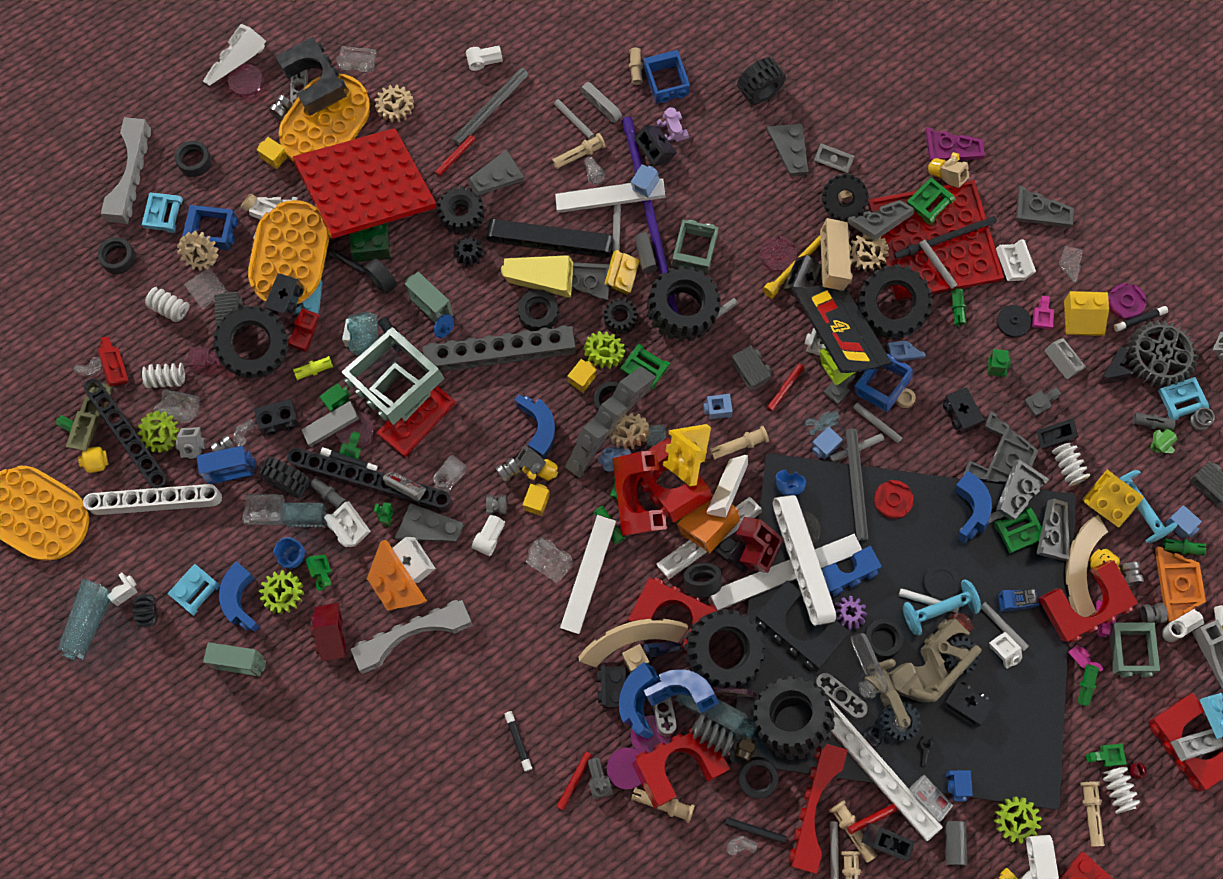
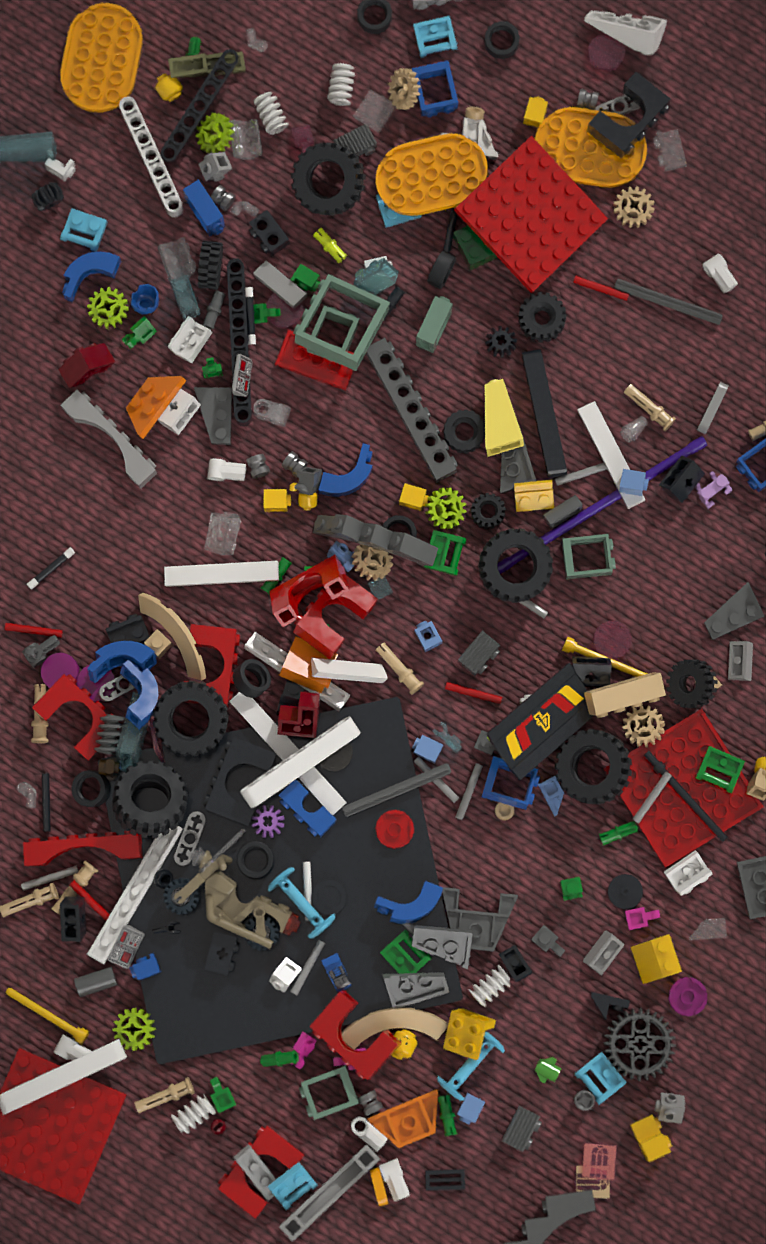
camera: 70 degrees right, 10 degrees up
(112, 363) = (266, 60): red hinge -> none
(234, 659) = (31, 293): sand green window -> none
(284, 296) = (375, 184): black brick -> none
(304, 329) = (365, 221): red slope -> none
(443, 326) = (414, 349): blue piece -> none
(496, 175) = (591, 336): dark grey wing -> none
(589, 134) = (686, 387): light grey bar -> none
(658, 649) = (176, 663): dark blue tile -> none
(687, 452) = (361, 617): yellow bracket -> none
(790, 484) = (373, 726): blue hair -> none
(883, 220) = (676, 726): dark grey wing -> none
(962, 401) = (519, 865): black brick -> none
(1131, 573) = (401, 1072): flat silver wheel -> none
(1141, 318) = (673, 1015): black bar -> none
(1153, 421) = (567, 1069): dark grey pin -> none

